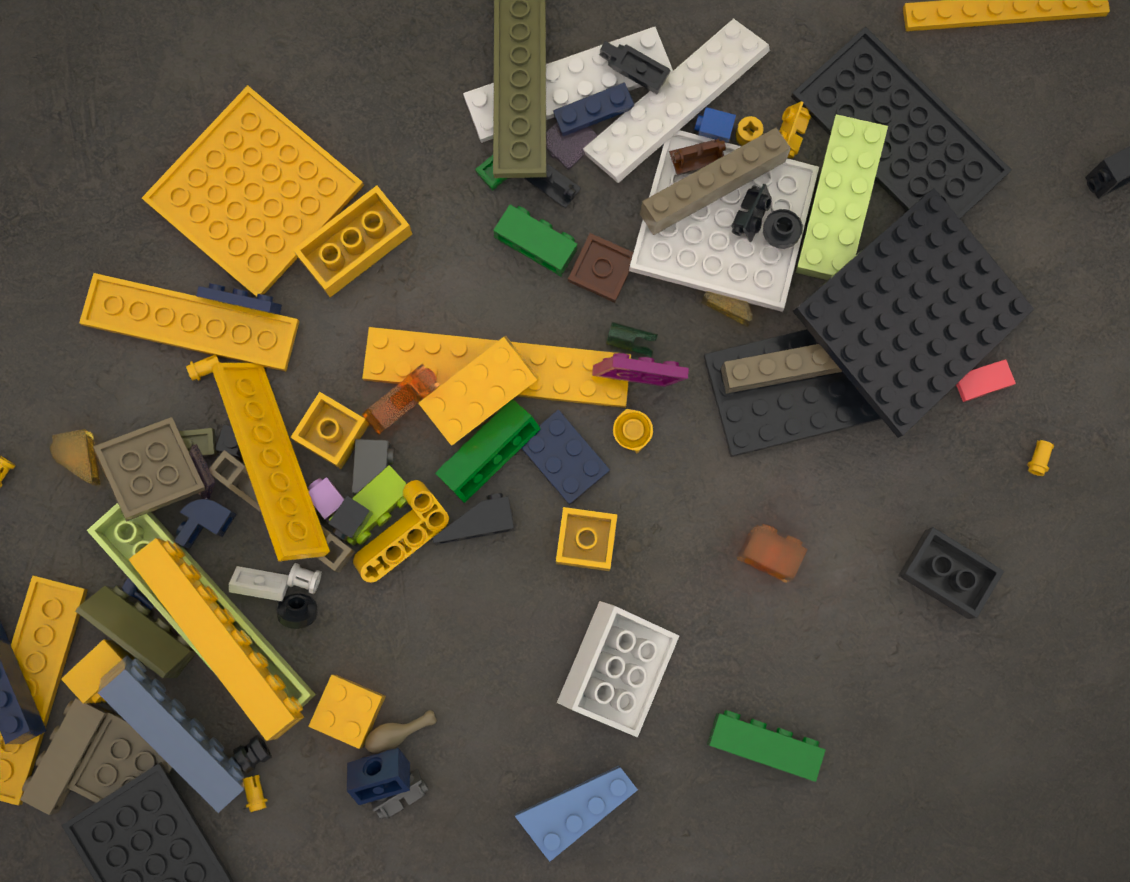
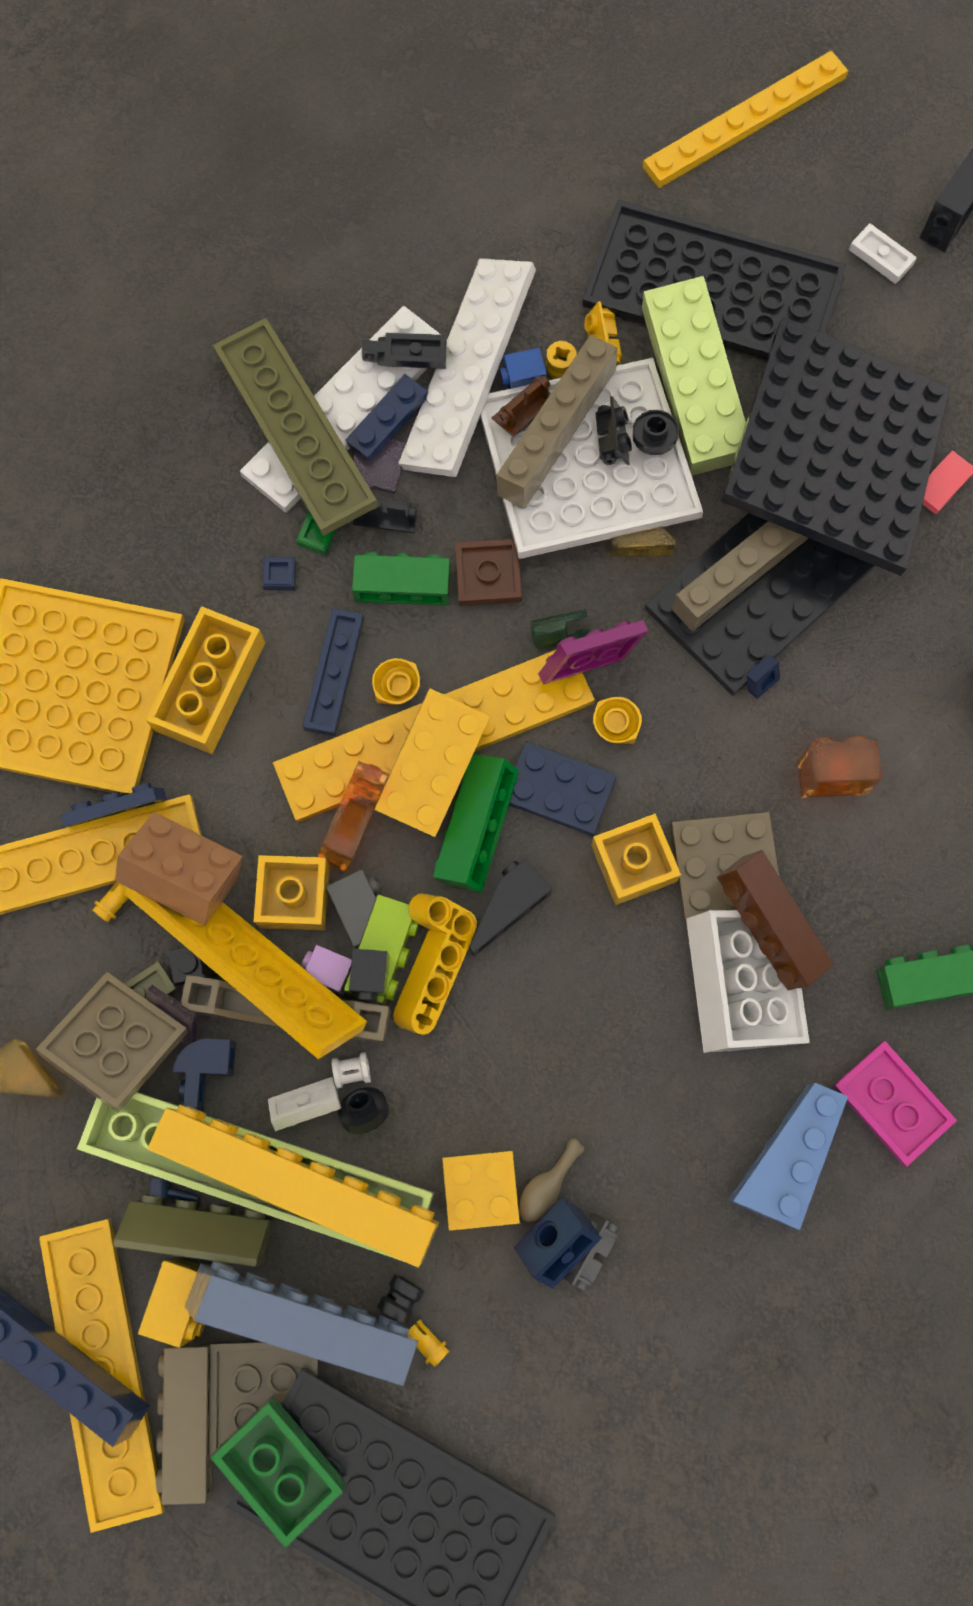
camera: 25 degrees left, 5 degrees down
(106, 821) = (278, 1471): none -> green brick
(258, 371) = (178, 868): none -> medium nougat brick
(448, 283) = (333, 672): none -> dark blue plate
(450, 187) = (279, 573): none -> dark blue tile
(489, 314) = (395, 681): none -> yellow hat
(652, 579) = (711, 846): none -> dark tan plate
(659, 638) = (775, 921): none -> reddish brown brick
(671, 813) = (894, 1103): none -> dark pink plate
(758, 454) = (763, 676): none -> dark blue plate
(1046, 175) = (882, 253): none -> white plate

